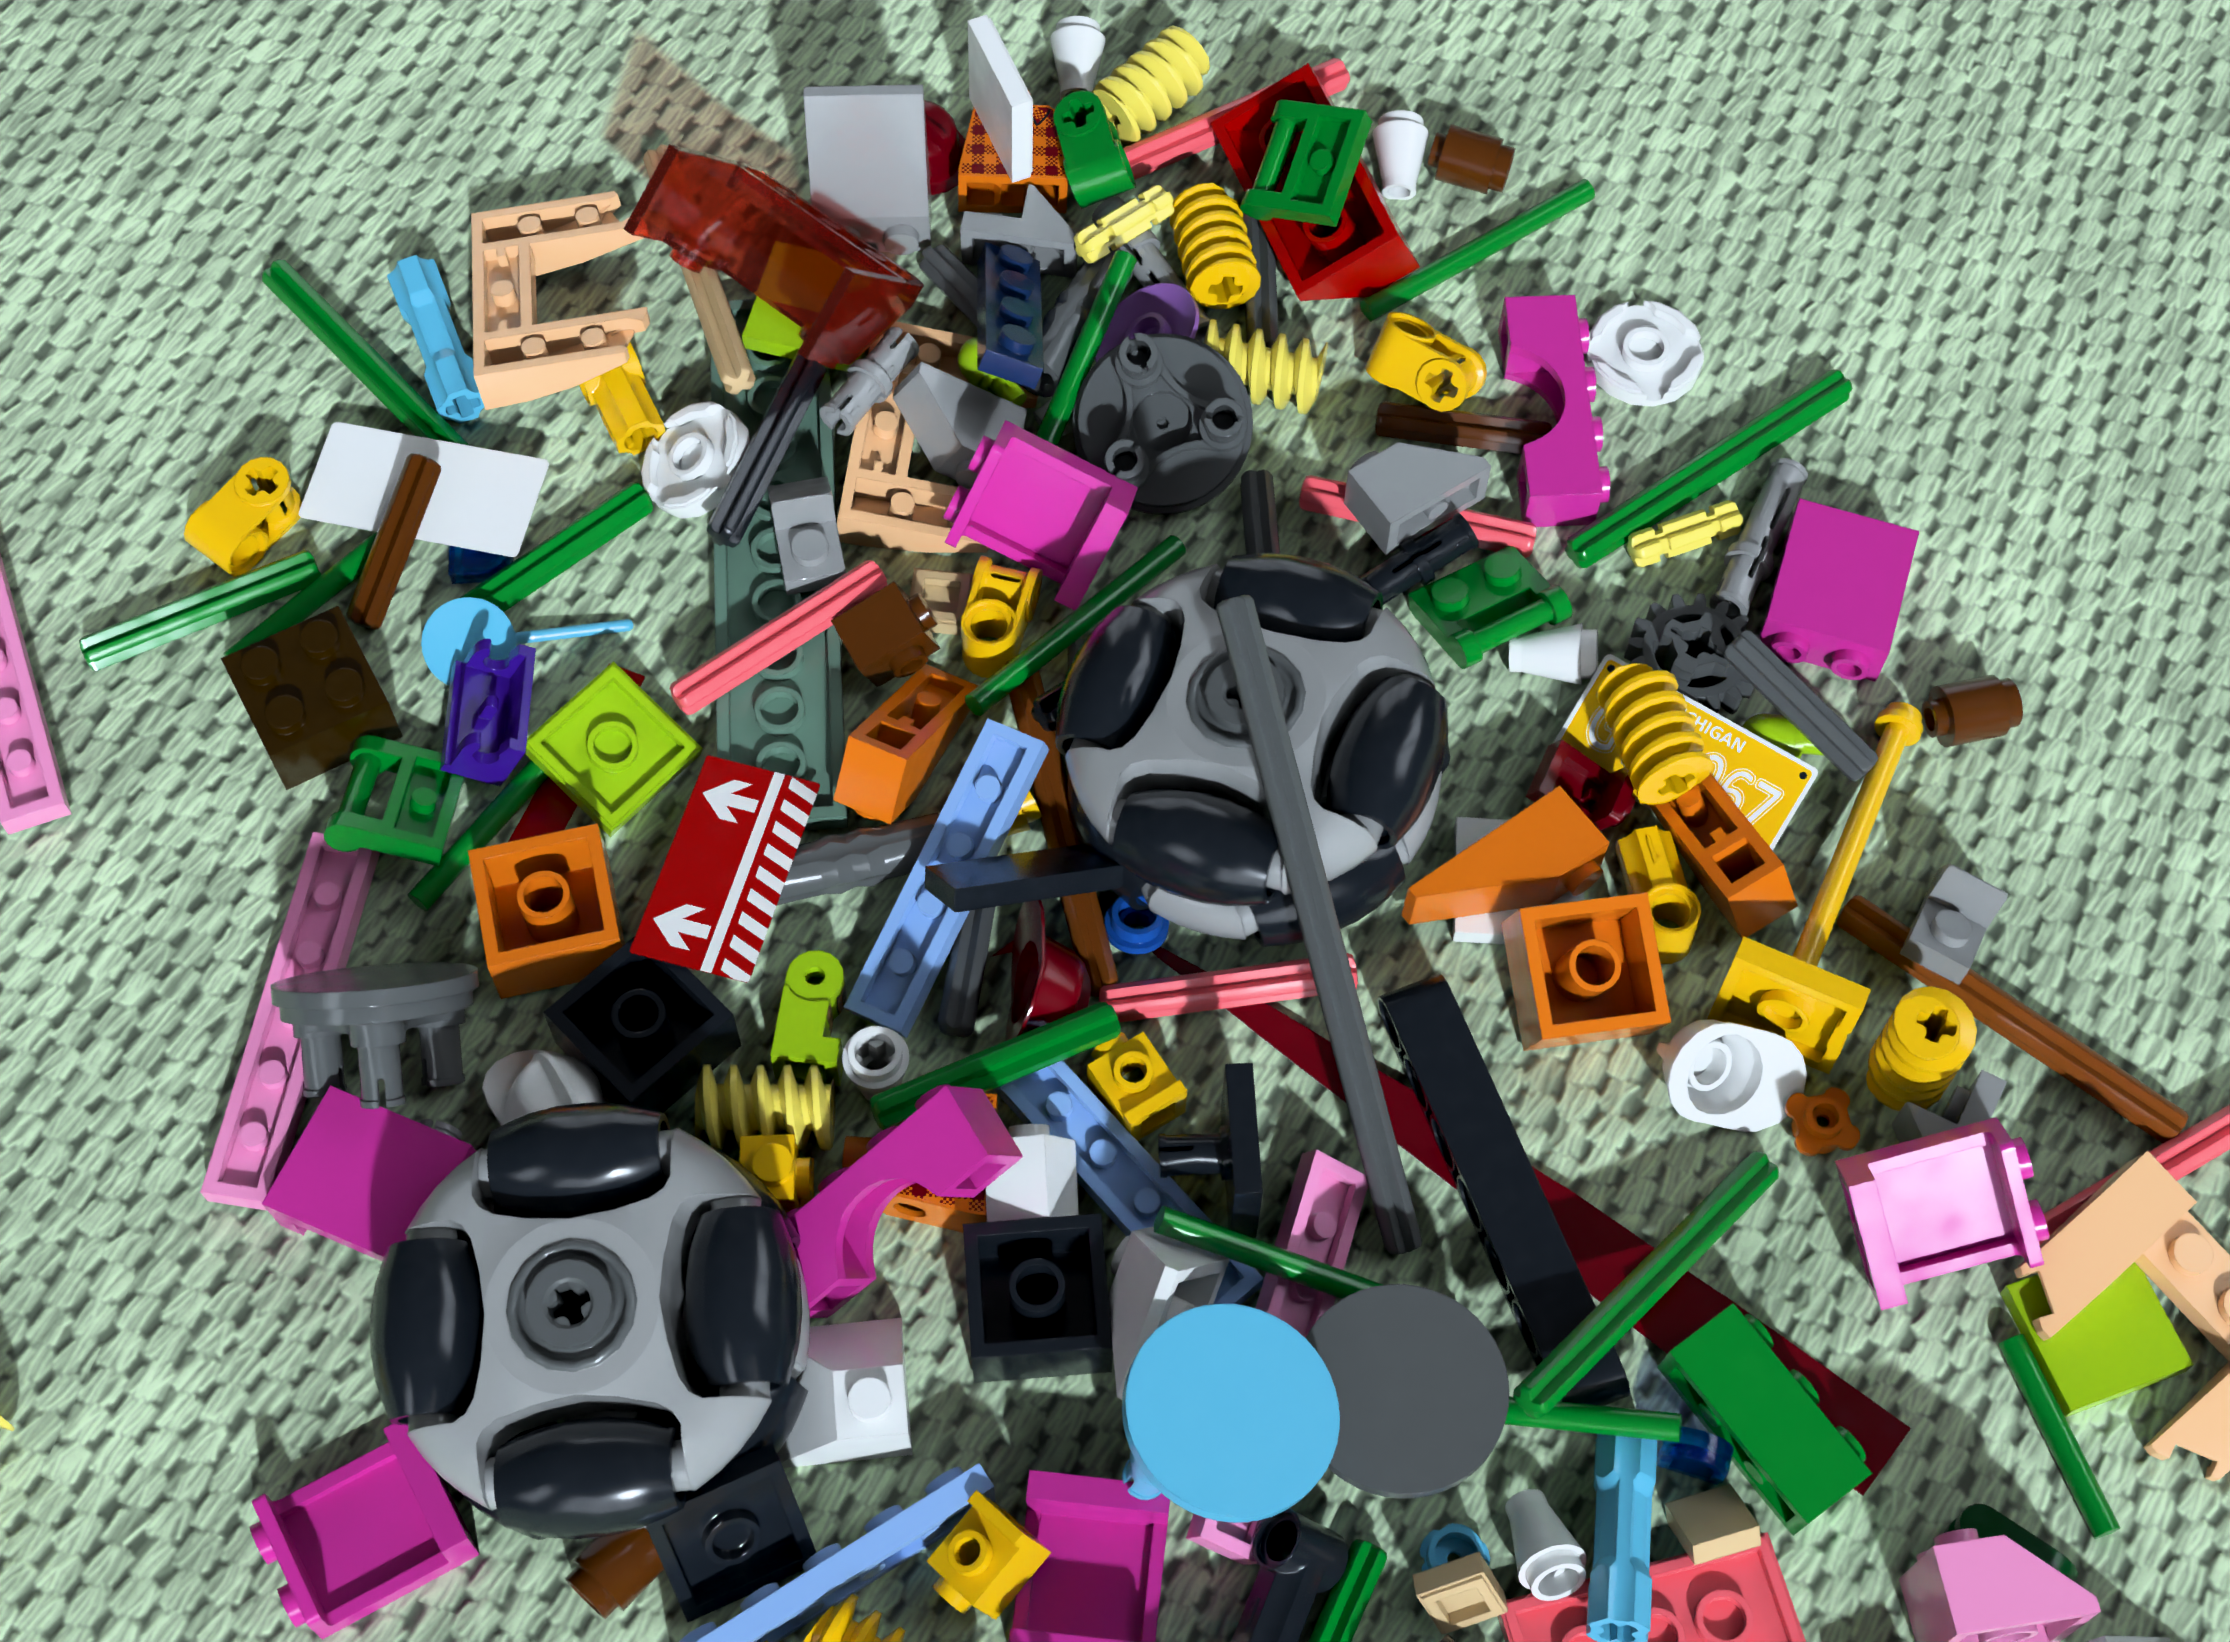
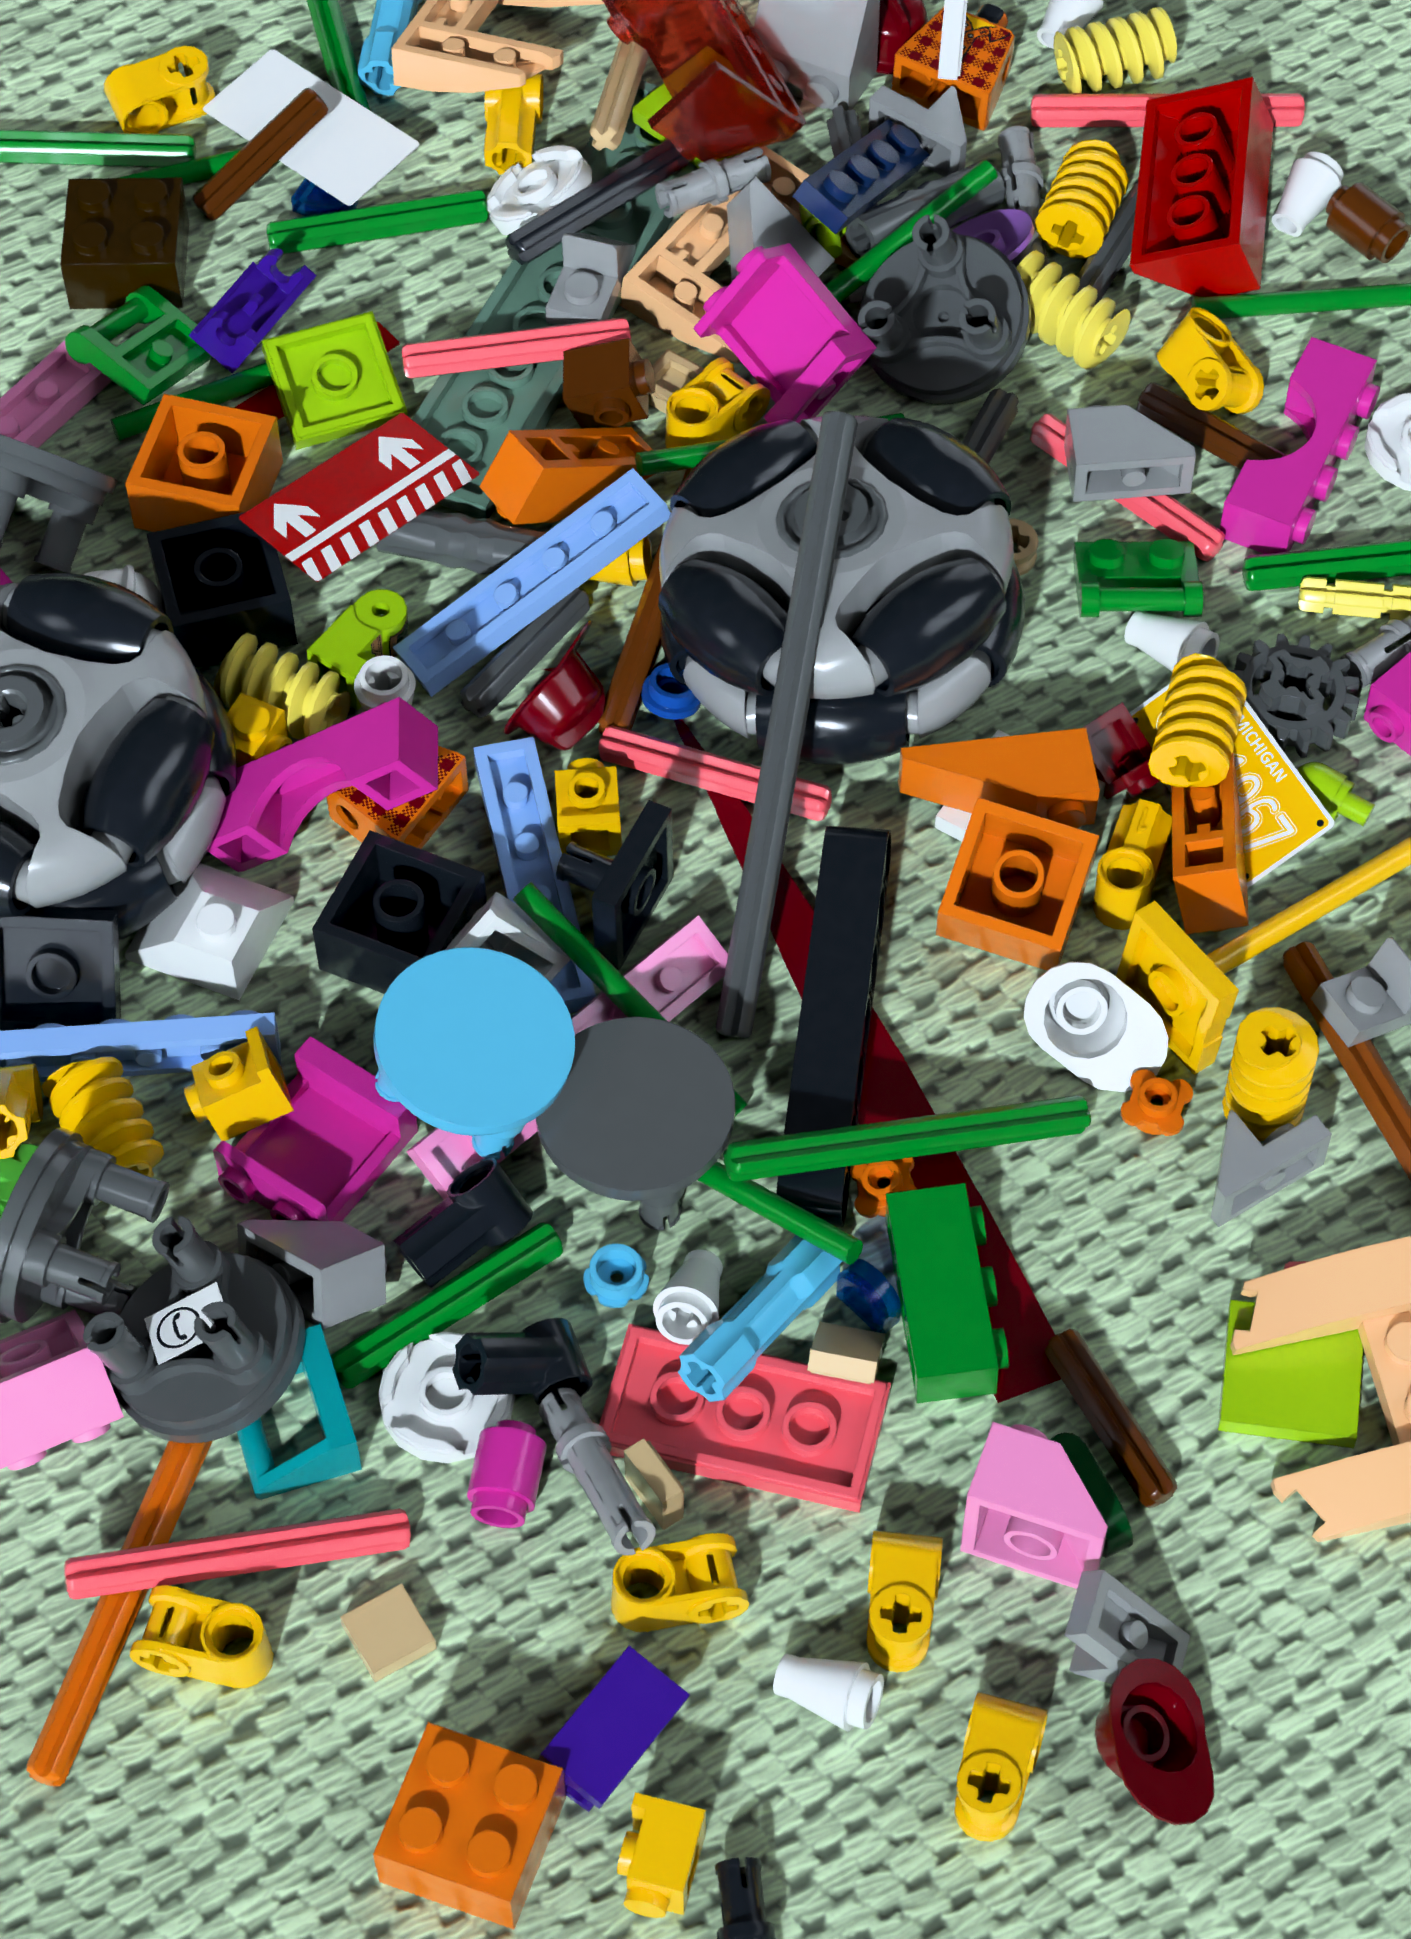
camera: 30 degrees right, 5 degrees down
(466, 620) = (298, 250): medium azure piece -> none
(1004, 1061) = (512, 735): green axle -> none
(1021, 877) = (585, 601): black tile -> none
(1040, 1182) = (455, 824): white brick -> none
(1091, 150) = (1022, 79): green piece -> none
(1123, 224) = (1013, 147): light yellow axle -> none
(1320, 168) = (1197, 155): green plate -> none
(1422, 558) = (1096, 518): black pin -> none
(1460, 1593) = (598, 1295): tan tile -> none
(1661, 1337) = (871, 1197): none -> orange plate
(1800, 705) = (1353, 765): dark grey axle -> none
(1941, 1206) = (1194, 1197): panel -> none
(1975, 1460) = (1111, 1418): none -> reddish brown axle
(2059, 1436) = (1200, 1438): green bar -> none

